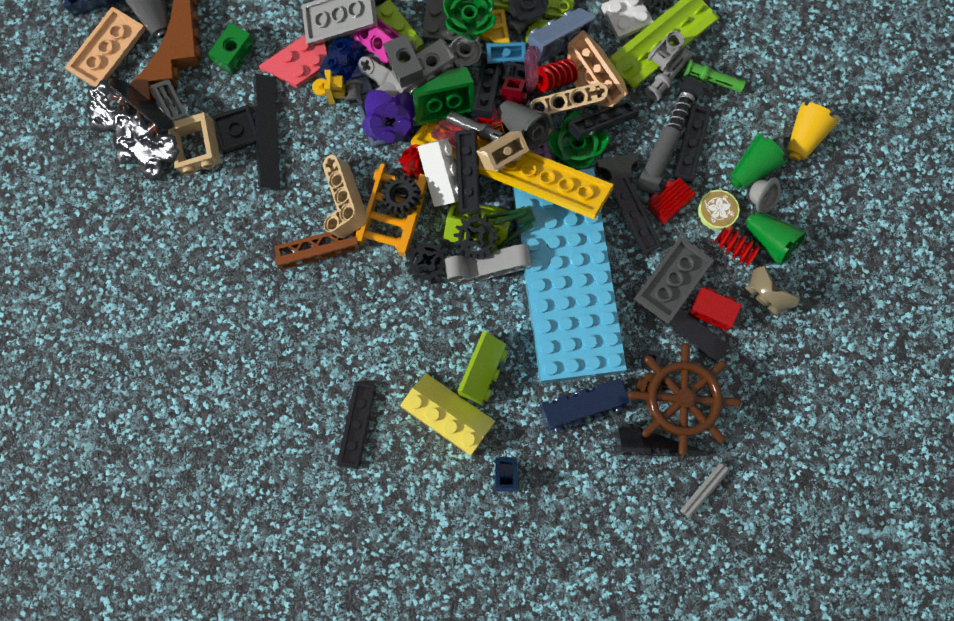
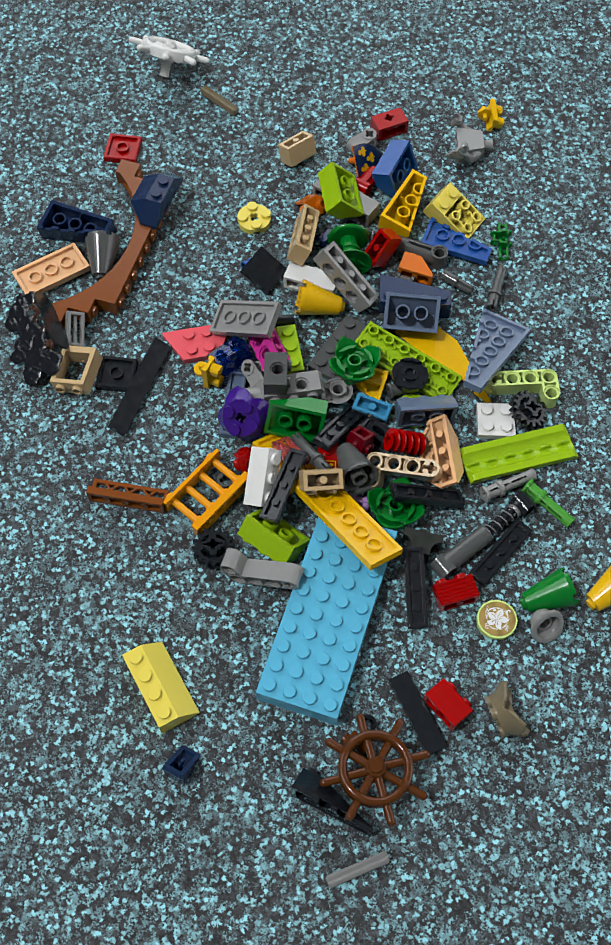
camera: 25 degrees right, 15 degrees down
(231, 38) = (148, 310): green brick -> none
(350, 208) = (172, 466): tan beam -> none
(354, 92) = (226, 384): dark grey bush -> none
(356, 425) = (78, 658): black tile -> none
(397, 185) = (218, 472): black tyre -> none
(469, 242) = (270, 544): black gear -> none
(483, 369) = (210, 658): lime slope -> none
(523, 215) = (311, 542): dark green plant -> none
(531, 69) = (384, 426): clear pink tile -> none
(583, 405) = (282, 734): dark blue wedge -> none
(665, 52) = (510, 464): light grey piece -> none
(674, 280) = (423, 661): dark grey plate -> none
(737, 245) = (494, 655): red piece -> none
(775, 236) = (537, 666): green cone -> none

